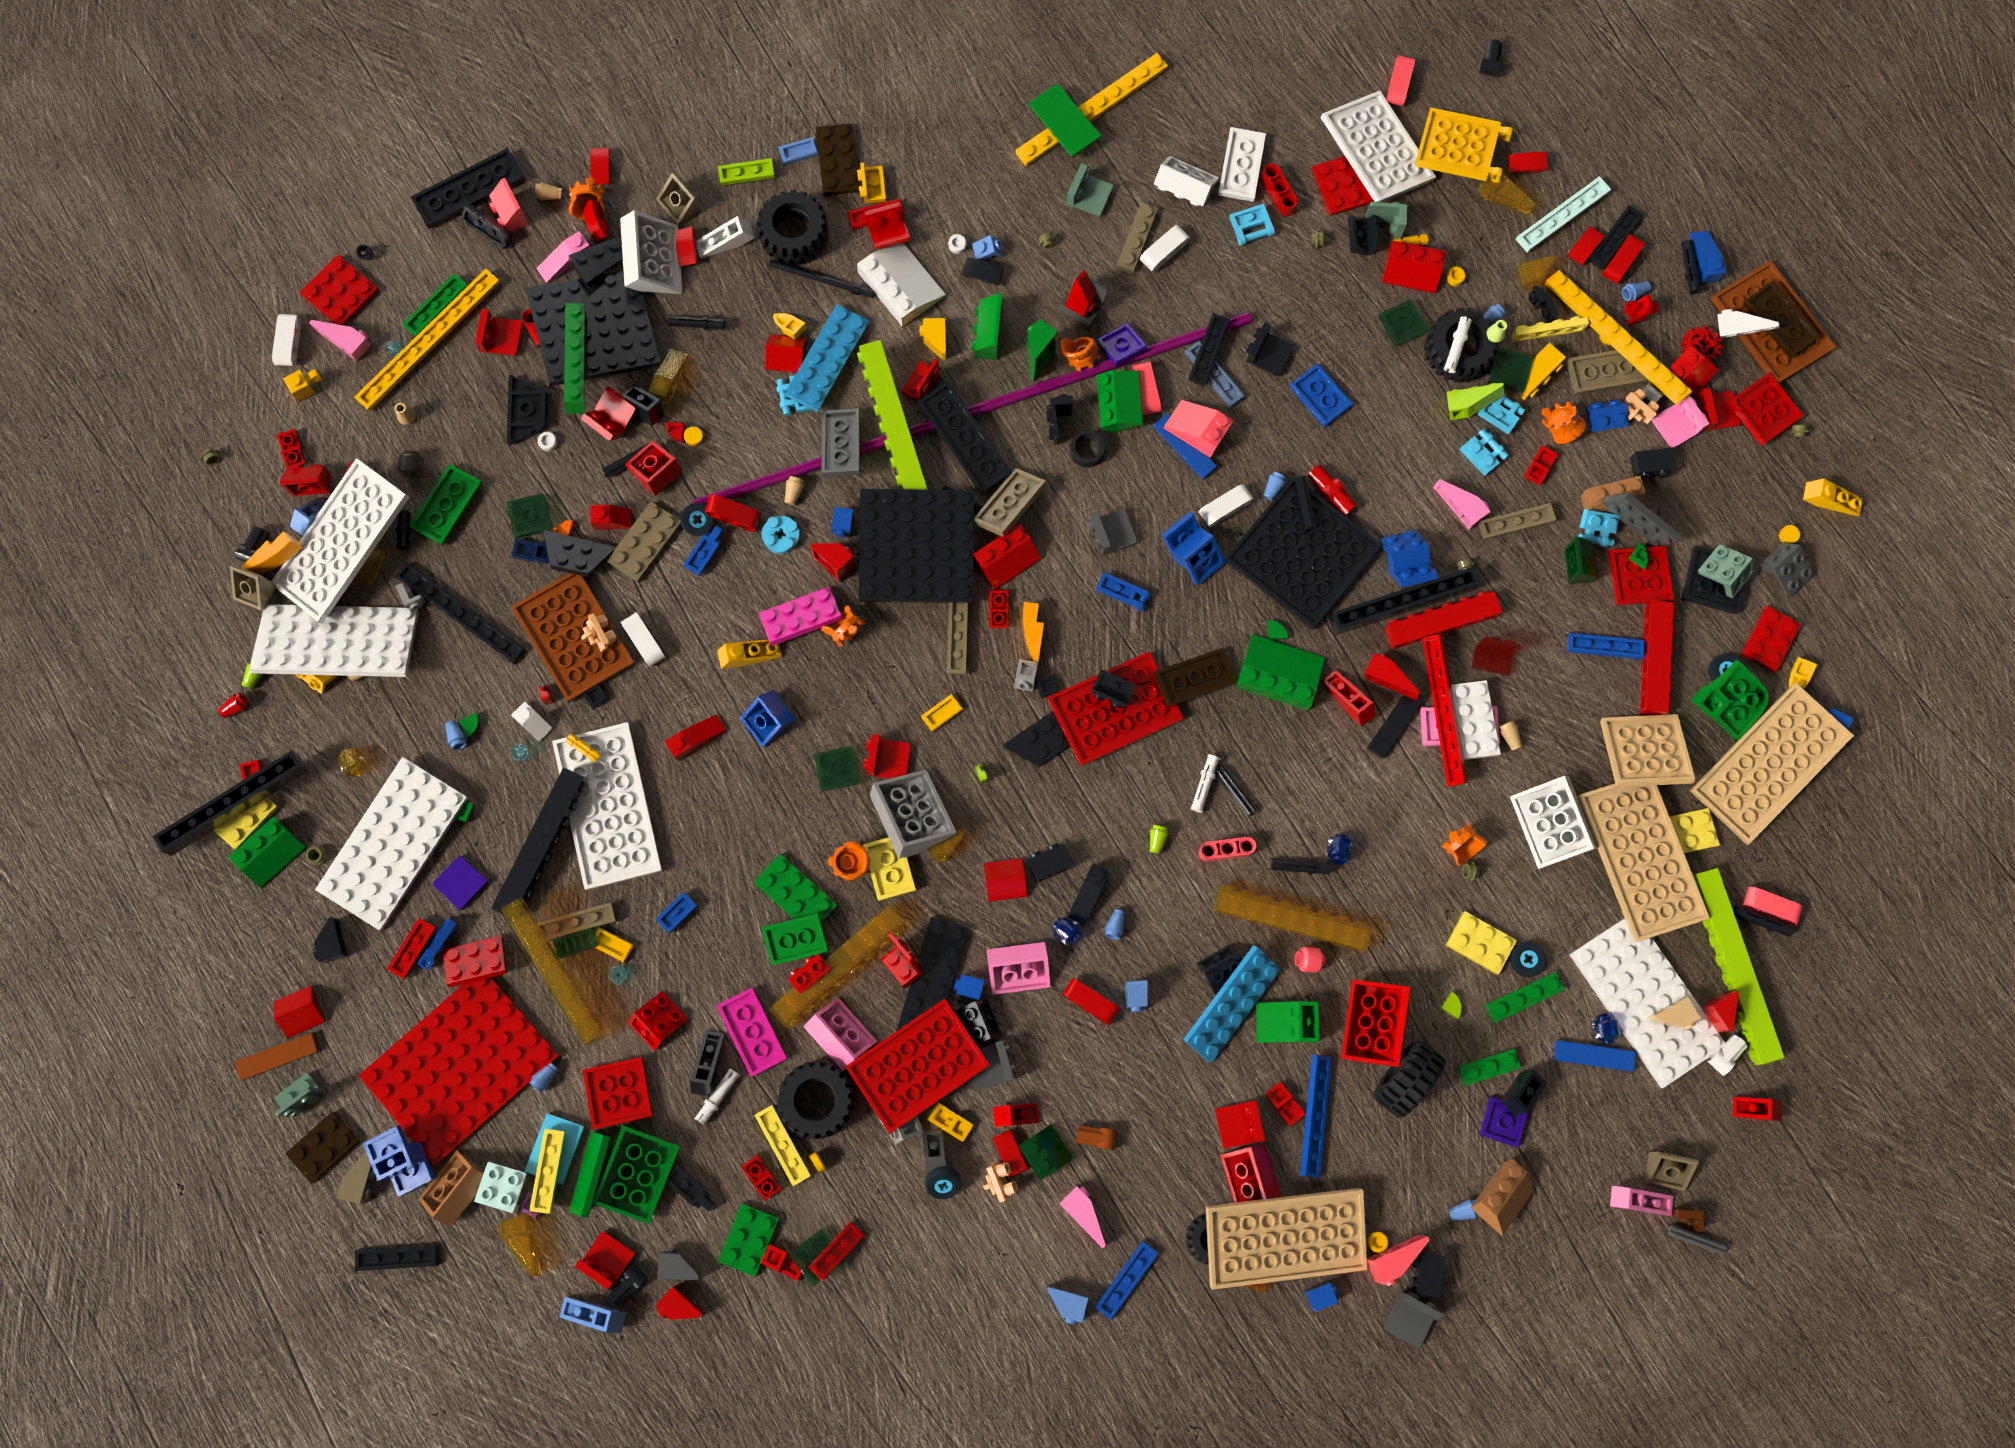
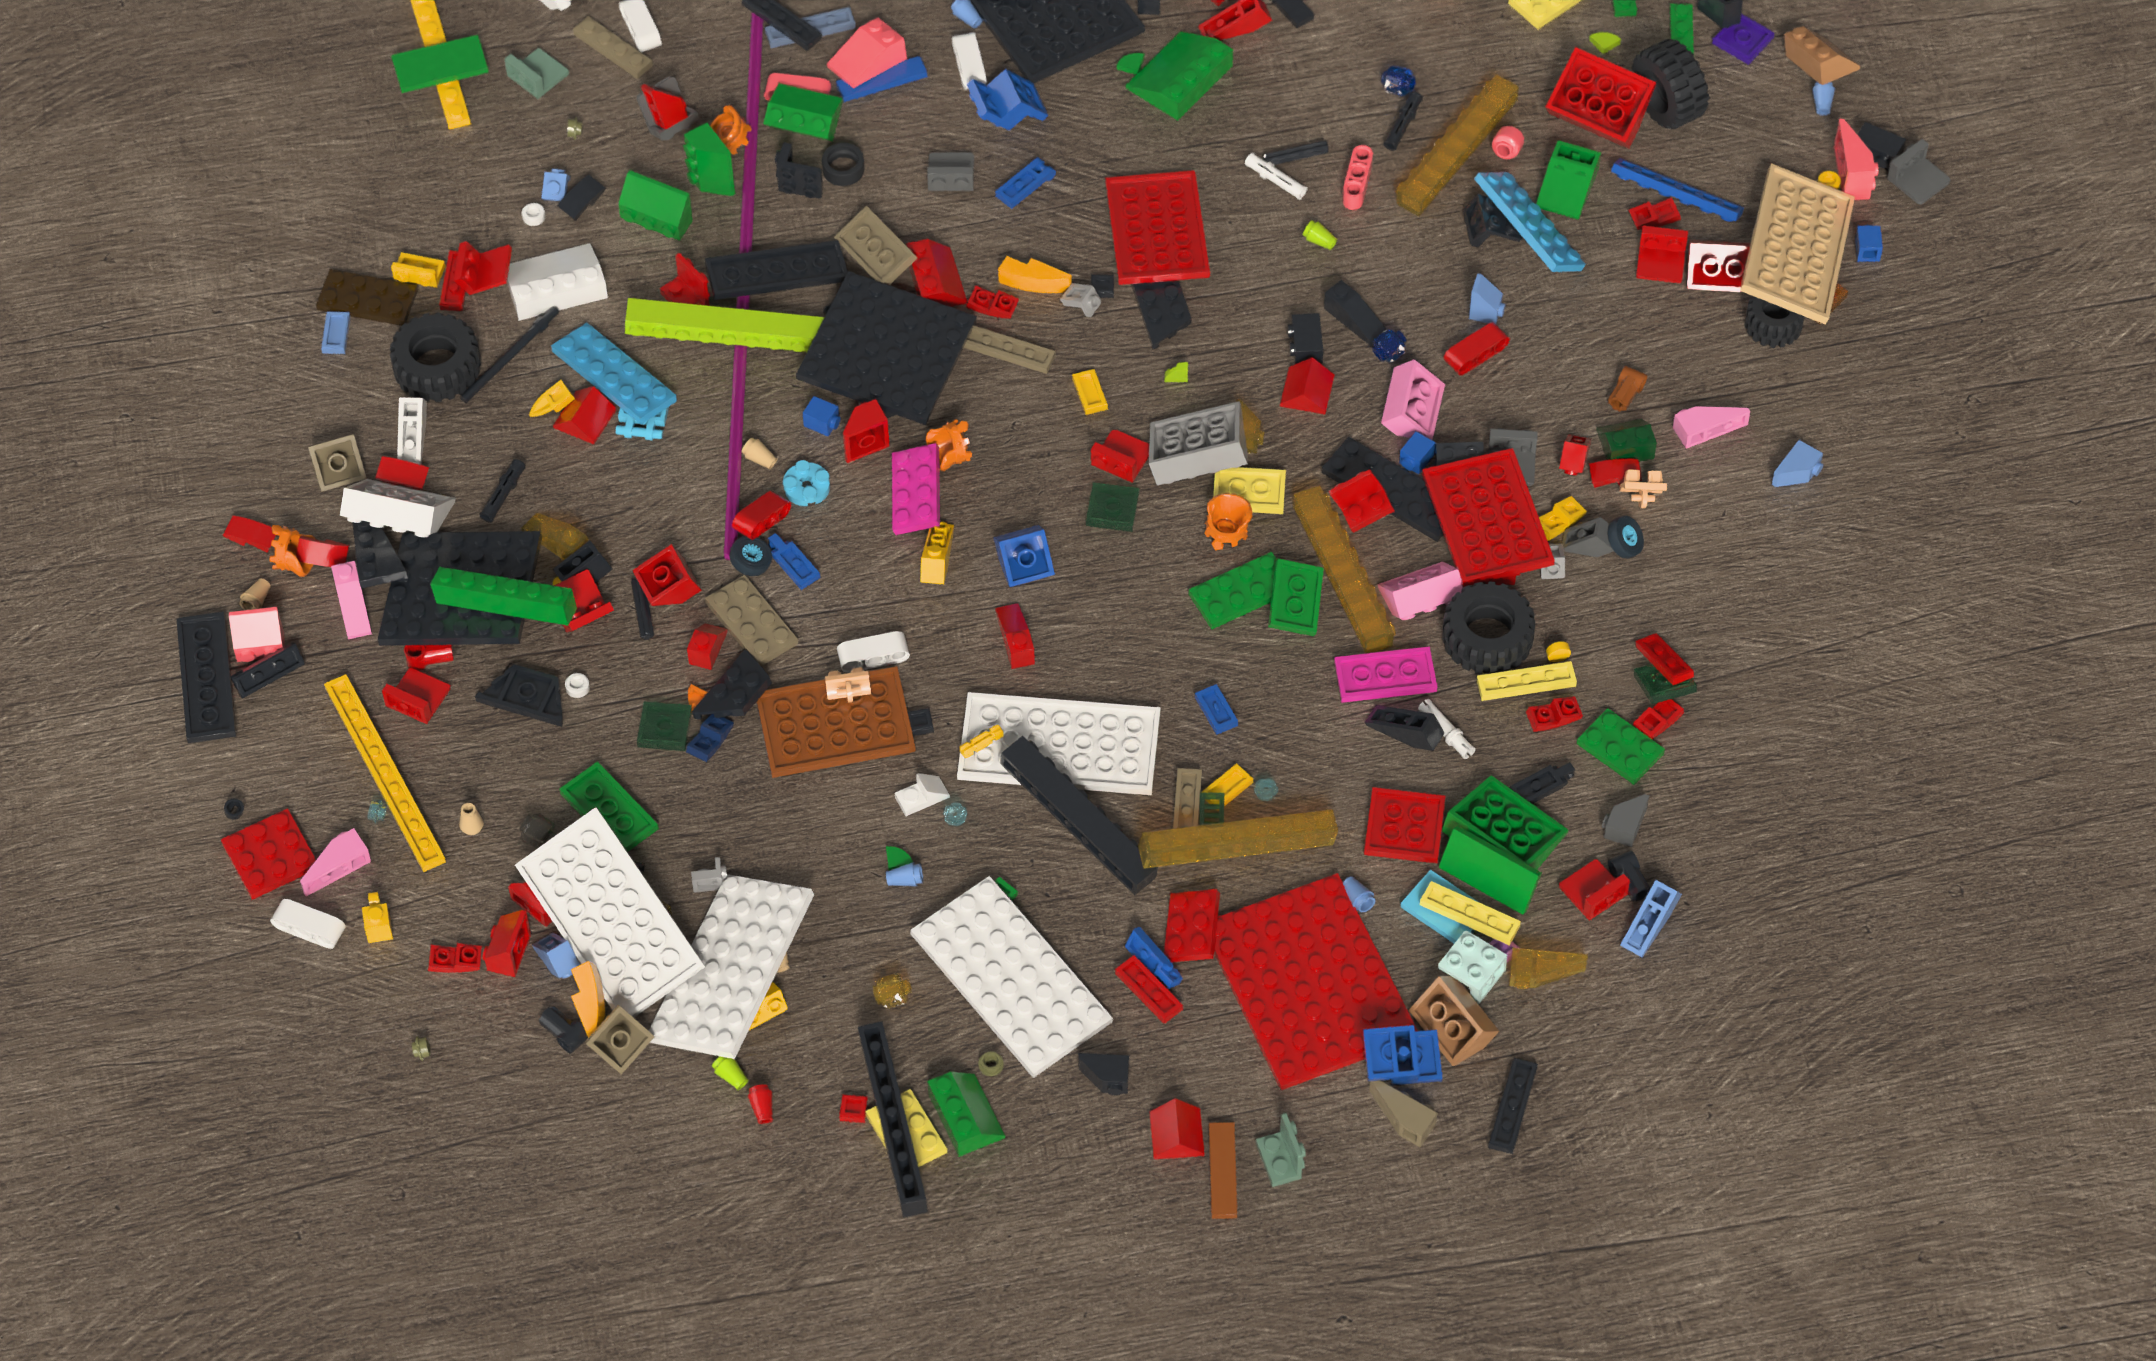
camera: 65 degrees left, 20 degrees down
(322, 1147) = (1352, 1149): dark brown plate -> none
(434, 305) = (344, 752): green plate -> none
(460, 613) = (754, 832): black tile -> none
(460, 882) = (1088, 921): dark purple tile -> none
(546, 695) = (896, 770): red tile -> none
(657, 1020) = (1337, 764): red bracket -> none
(676, 431) = (628, 552): red tile -> none
(677, 1306) = (1669, 830): red slope -> none
(693, 436) = (643, 535): yellow tile -> none
(746, 171) = (336, 388): lime plate -> none
(807, 975) = (1341, 595): red bracket -> none
(840, 442) = (726, 386): dark grey plate -> none
(934, 335) = (639, 264): yellow slope -> none
(1113, 688) = (1135, 214): black bracket -> none
(1115, 925) = (1401, 302): medium blue cone -> none
(1122, 344) = (738, 92): dark purple tile -> none
(1126, 1280) = (1790, 410): blue tile -> none
(1194, 677) = (1154, 145): dark brown plate -> none

